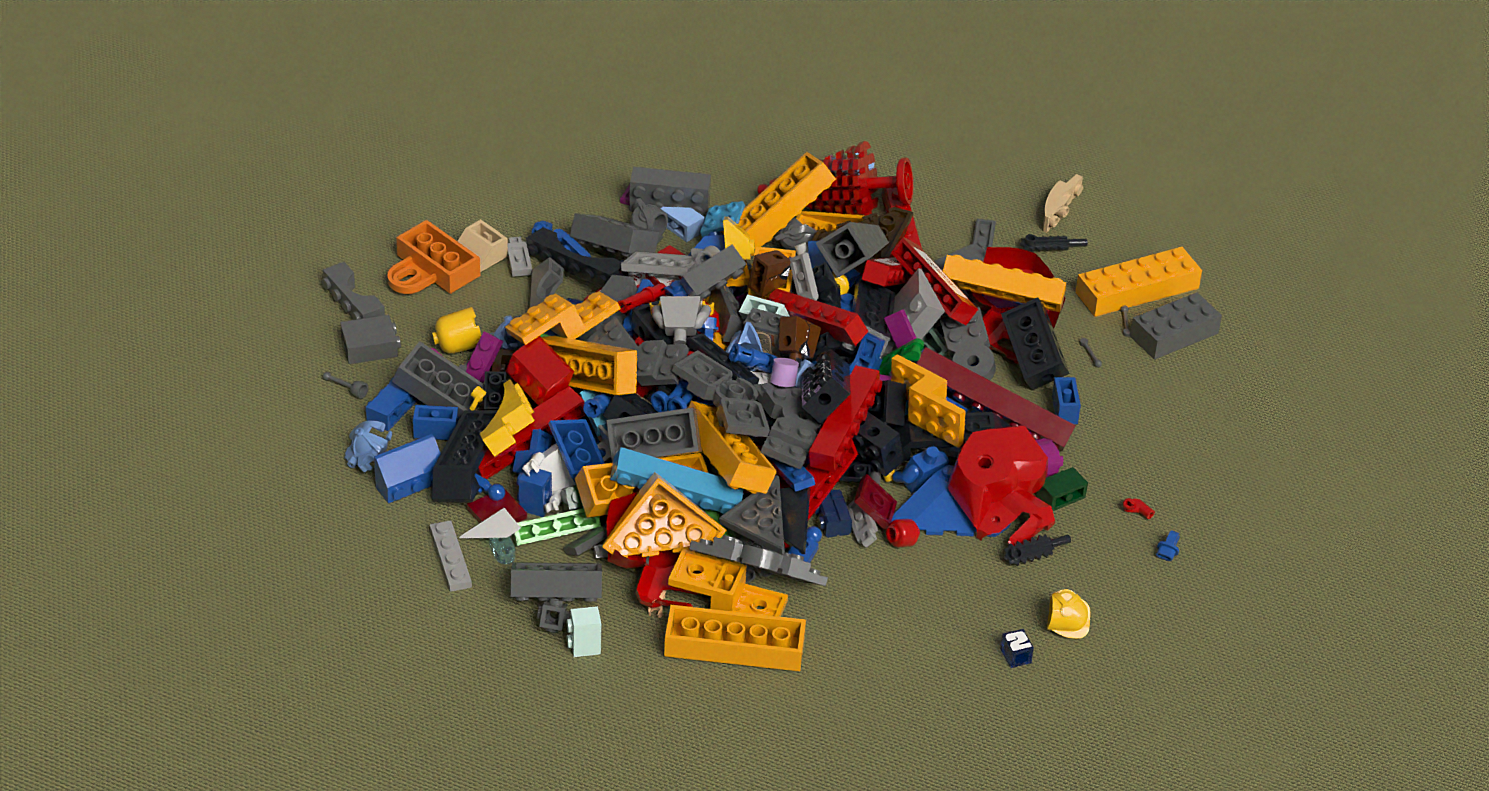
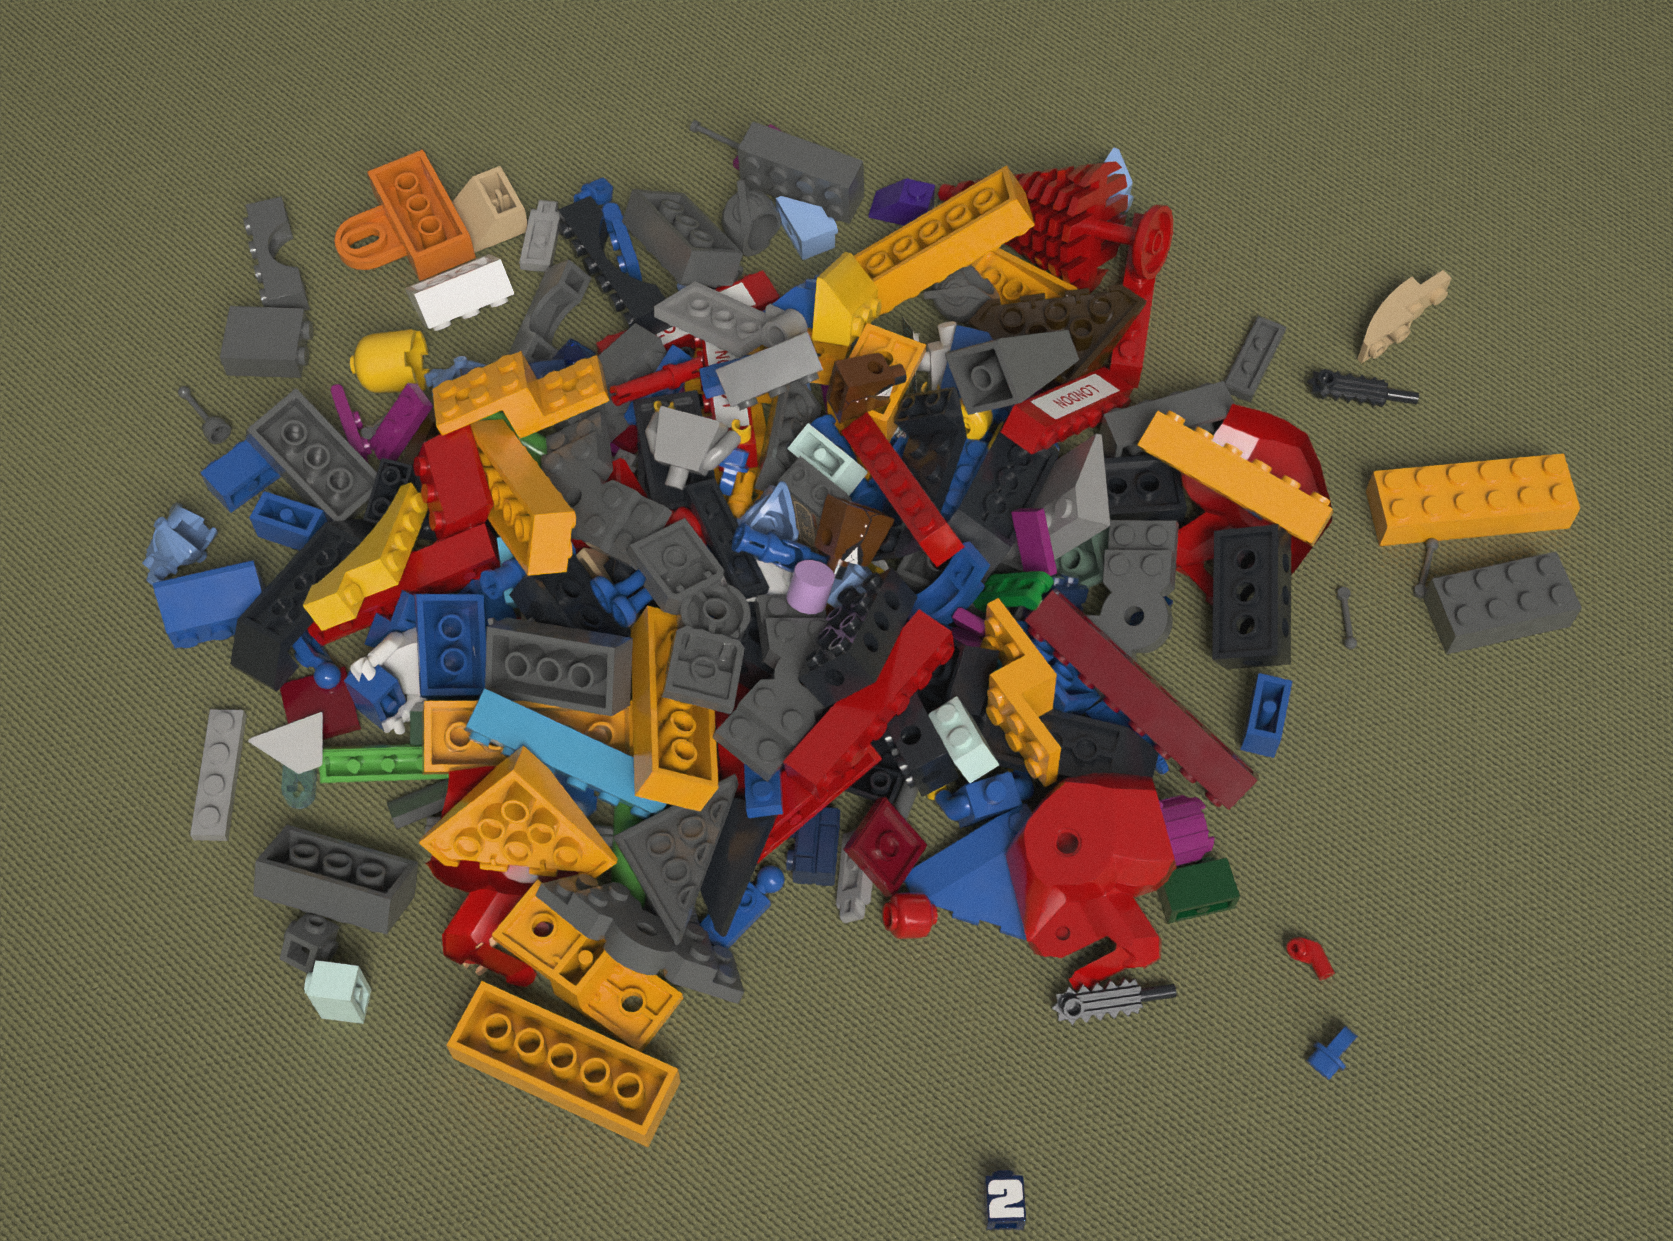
camera: 20 degrees right, 20 degrees up
(478, 394) = (360, 495): yellow hand -> none
(483, 291) = (460, 292): none -> white slope
(587, 186) = (695, 127): none -> dark grey piece
(716, 214) = (859, 236): dark azure bracket -> none
(740, 192) = (903, 201): none -> dark purple slope
(803, 276) = (909, 414): light grey hinge -> none
(910, 431) = (963, 739): none -> light aqua brick
(950, 296) = (1130, 492): red brick -> none
(1068, 615) = (1111, 1161): yellow helmet -> none

